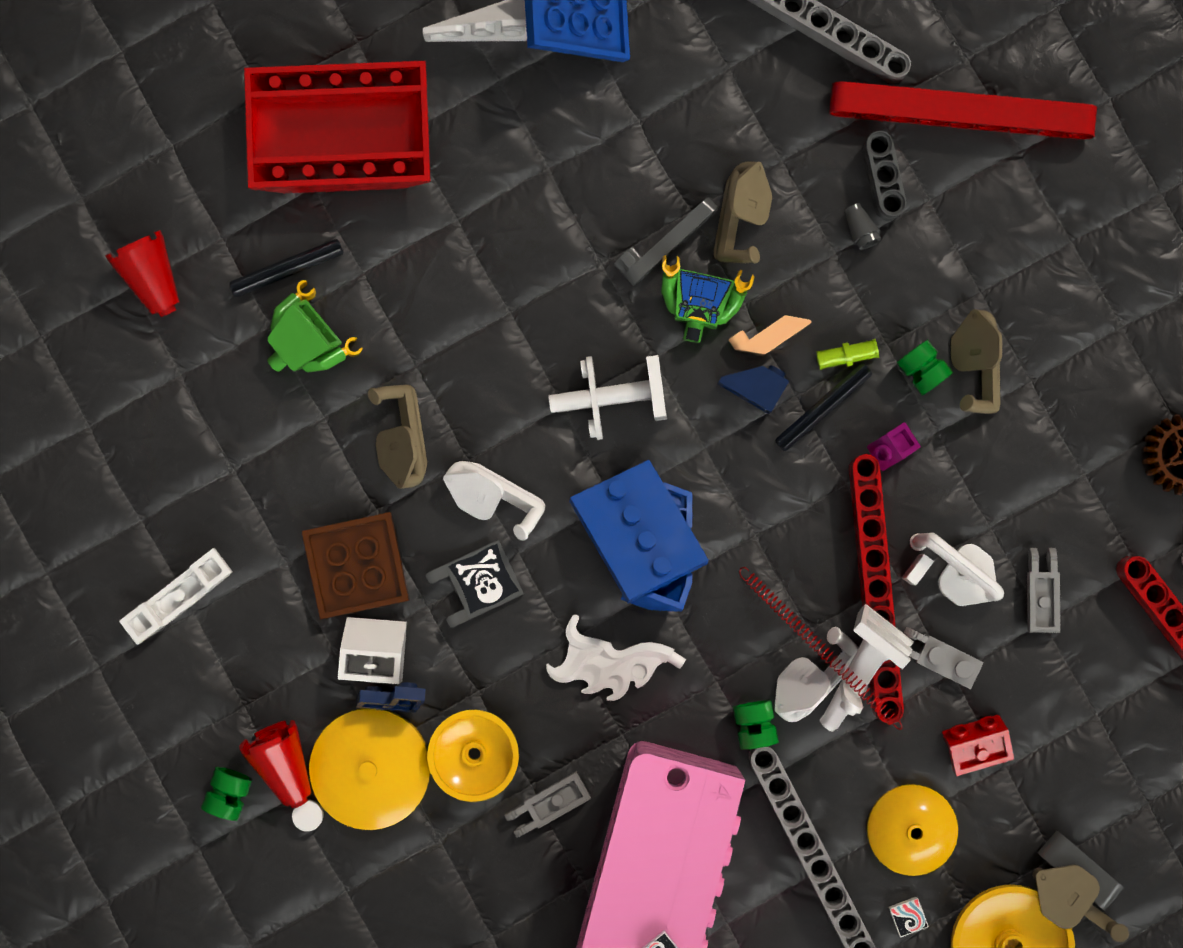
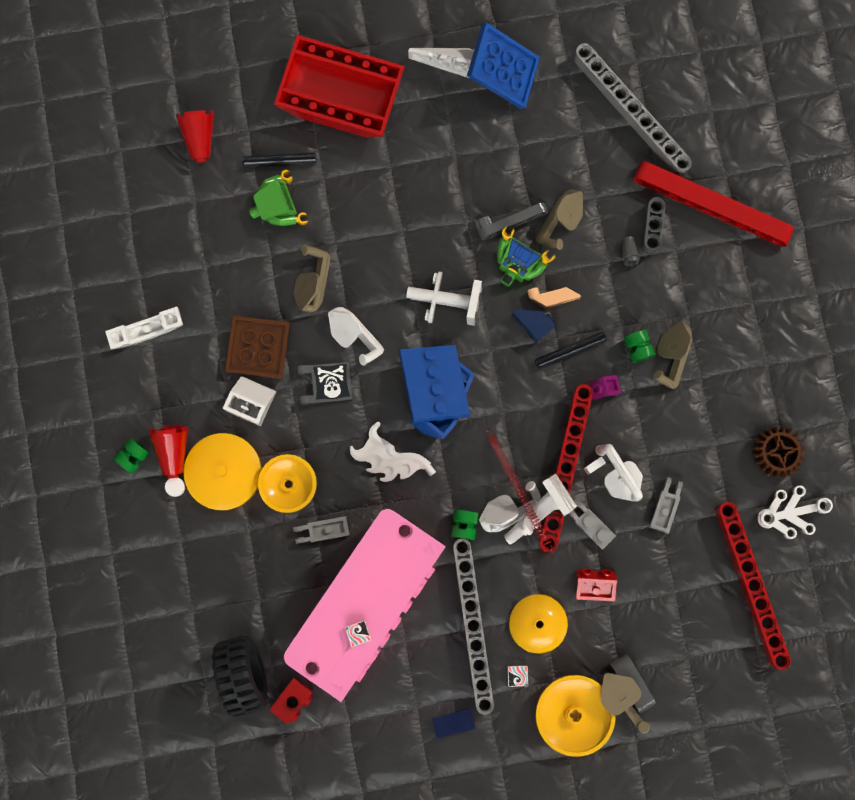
camera: 15 degrees right, 5 degrees down
(402, 698) = (257, 435): dark blue plate -> none
(847, 354) = (595, 323): lime pin -> none

